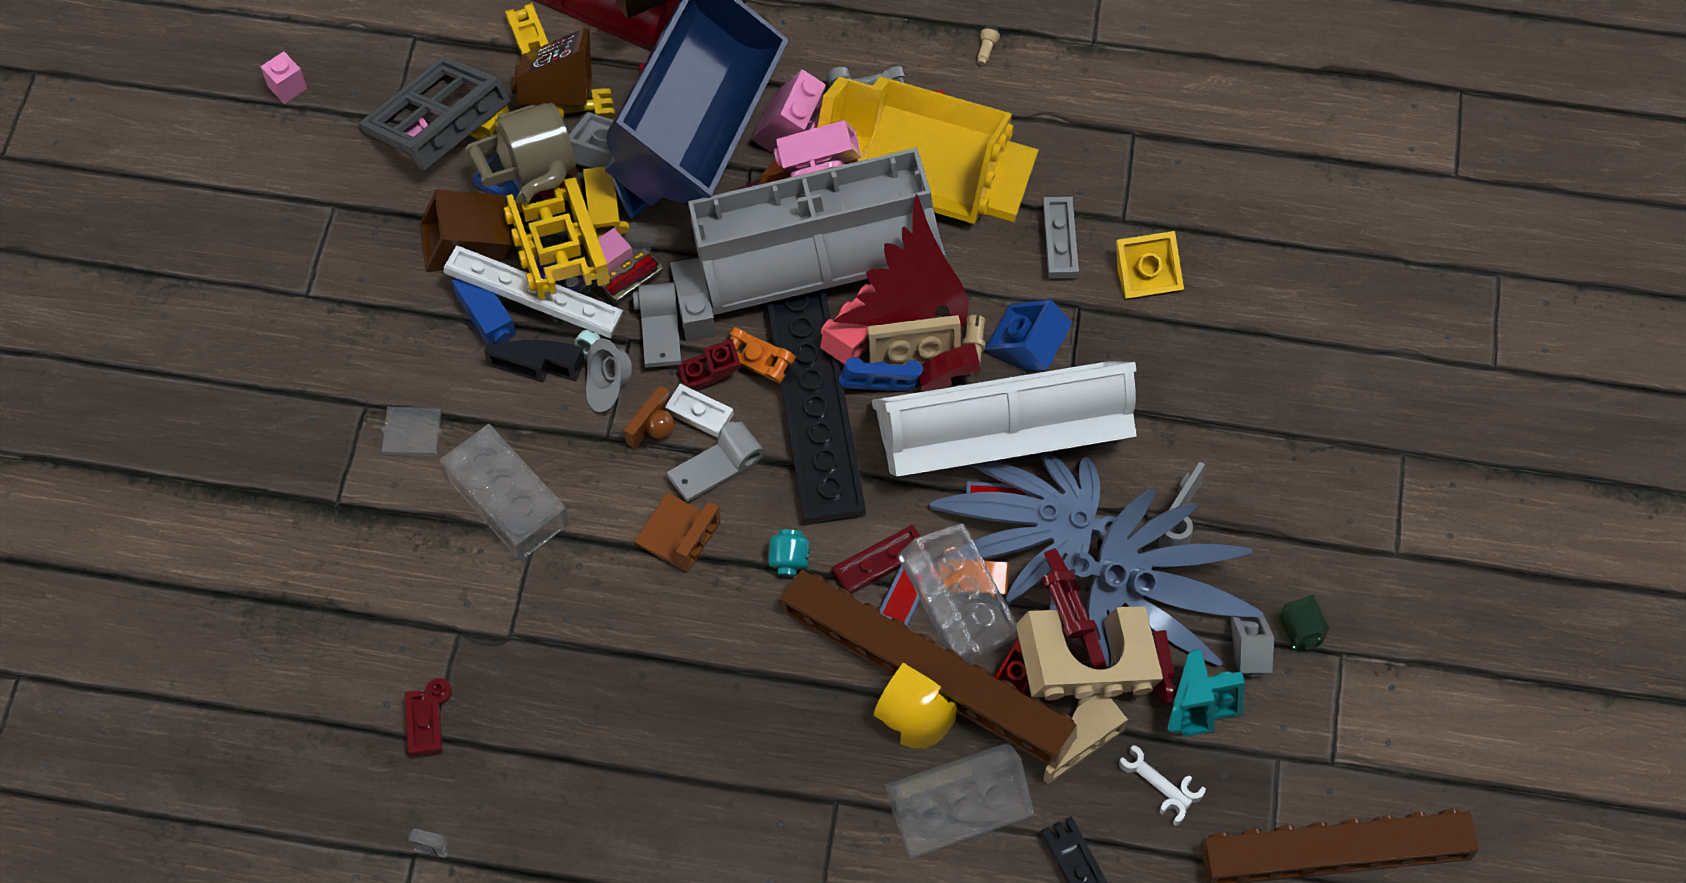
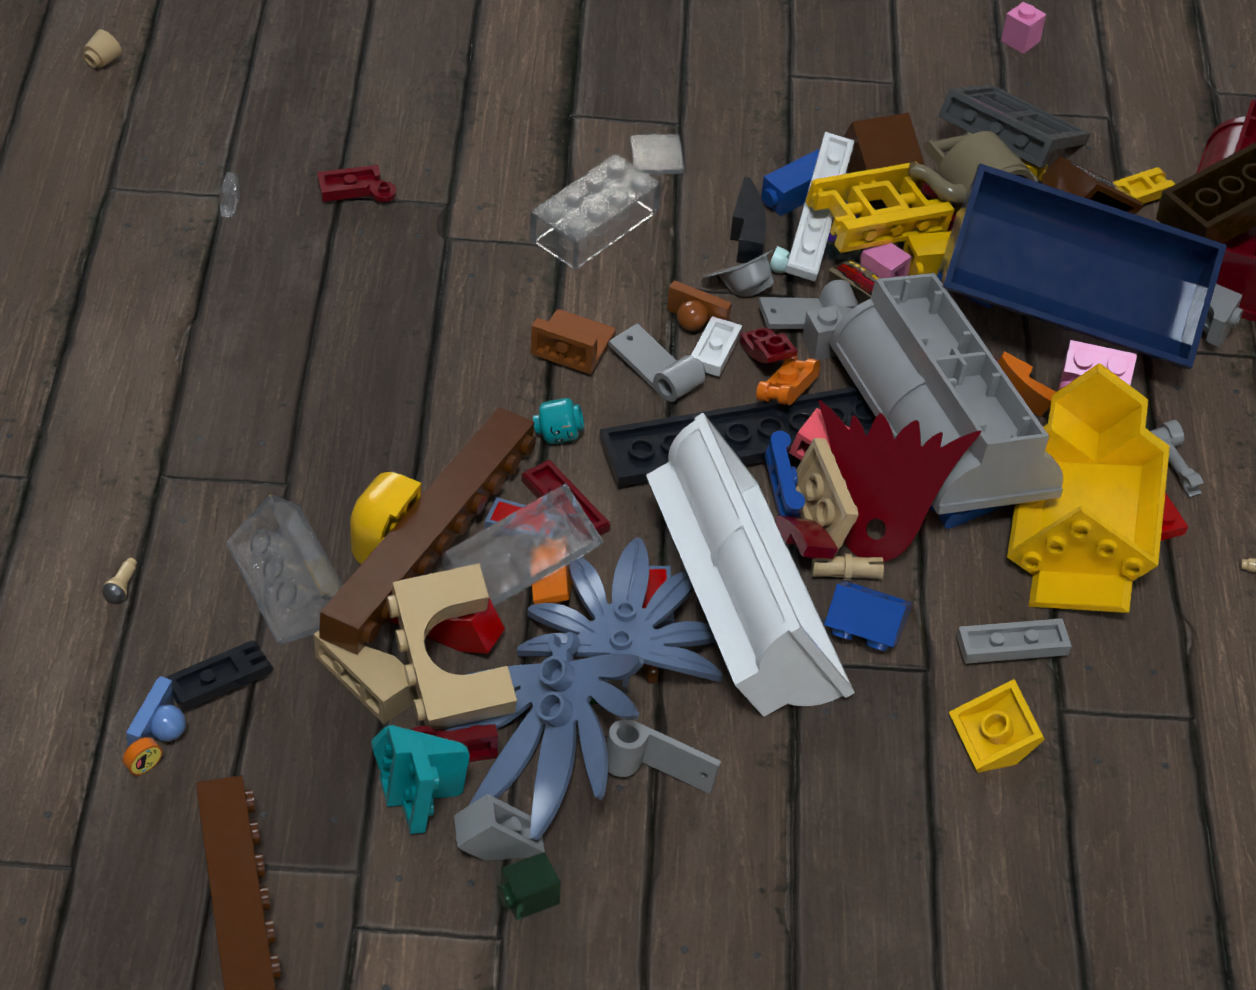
camera: 80 degrees right, 15 degrees down
(818, 148) = (1035, 374): bright pink brick -> none
(1065, 594) = (472, 635): dark red bar -> none
(1178, 799) = (306, 770): white bar -> none

